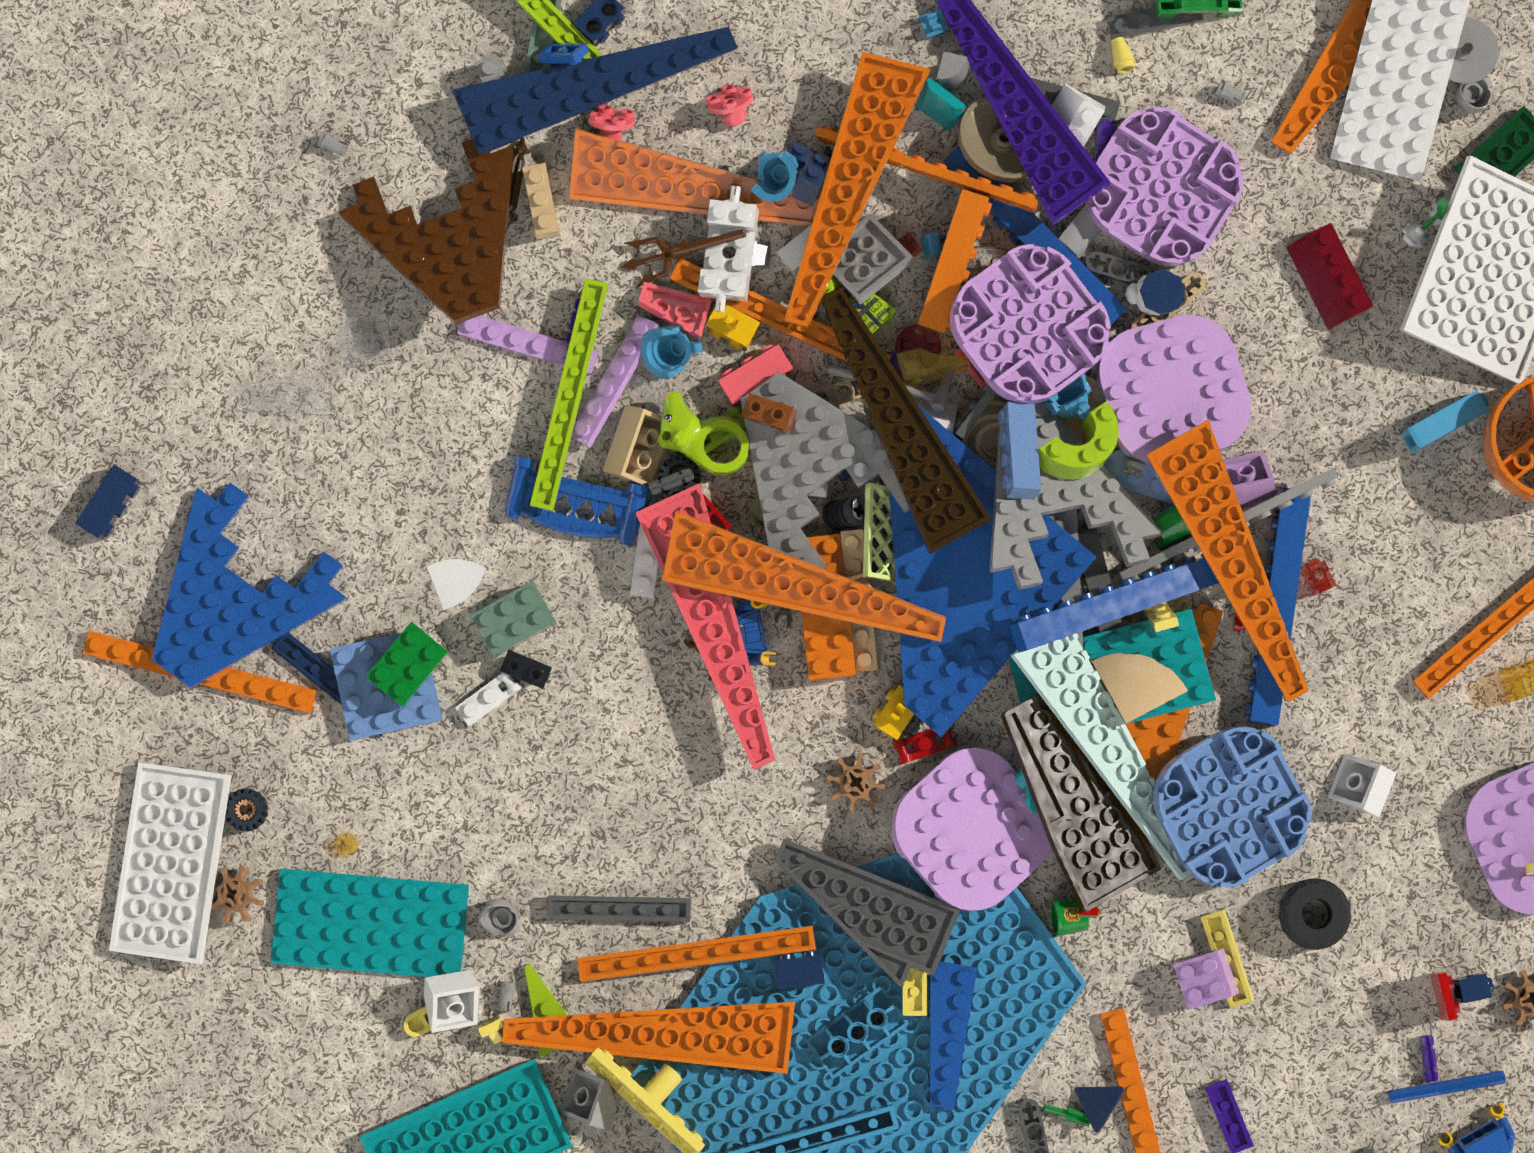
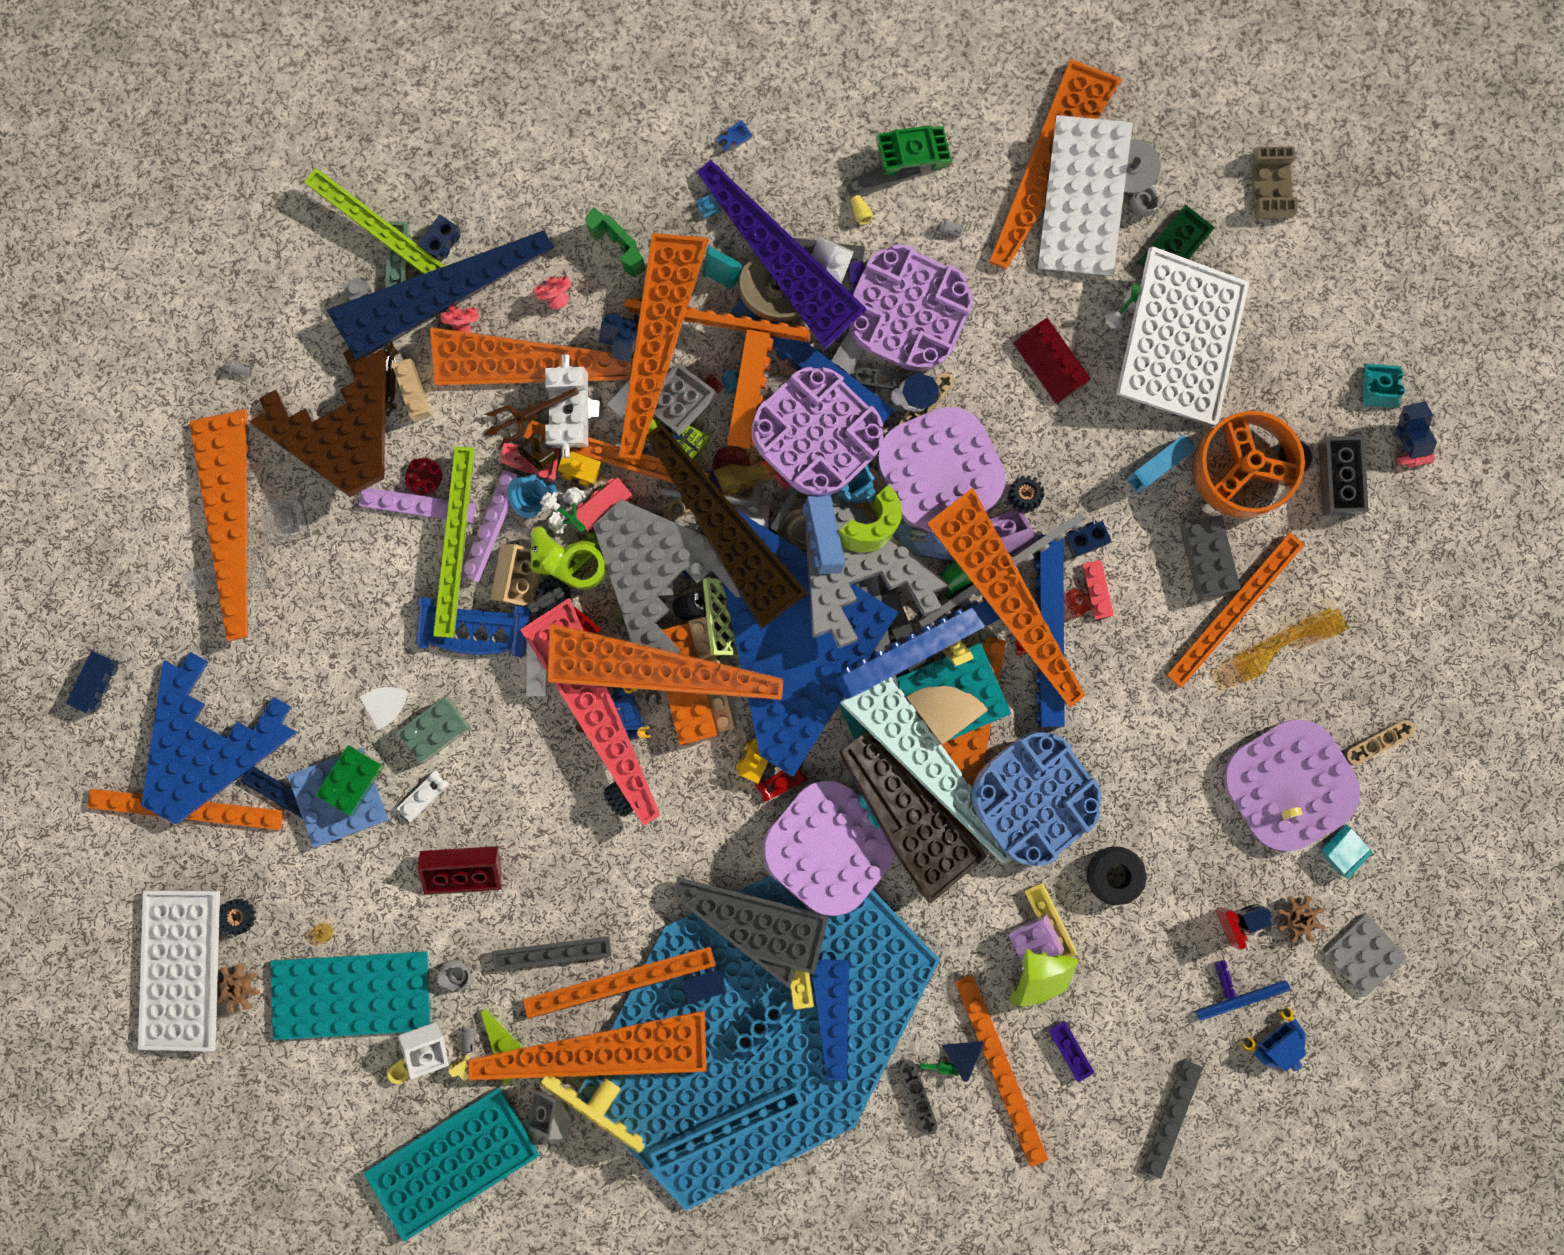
camera: 10 degrees left, 0 degrees up
(297, 270) = (222, 472): none -> orange wing
(522, 793) = (460, 870): none -> dark red slope
(526, 669) = (449, 769): black hinge -> none
(540, 308) = (423, 476): none -> dark red dish
(563, 53) = (412, 268): blue plate -> none
(685, 300) = (537, 452): none -> dark brown beam
(696, 387) = (557, 521): none -> white plant
(725, 734) = (617, 800): none -> black bush
(769, 413) = (616, 533): dark orange brick -> none
(776, 175) = (596, 340): dark azure helmet -> none
(794, 30) = (599, 224): none -> green plate
(846, 789) = (736, 815): medium nougat gear -> none
(953, 71) = (728, 239): light grey brick -> none
(1069, 918) = (917, 908): green hat -> none
(1208, 1021) = (1042, 978): none -> lime wedge
(1273, 424) = (1026, 503): none -> black bush
(1342, 505) = (1089, 543): none -> dark blue brick
(1344, 565) = (1097, 589): none -> coral plate
(1362, 785) = (1138, 765): white slope -> none
(1487, 544) = (1209, 557): none -> dark grey brick

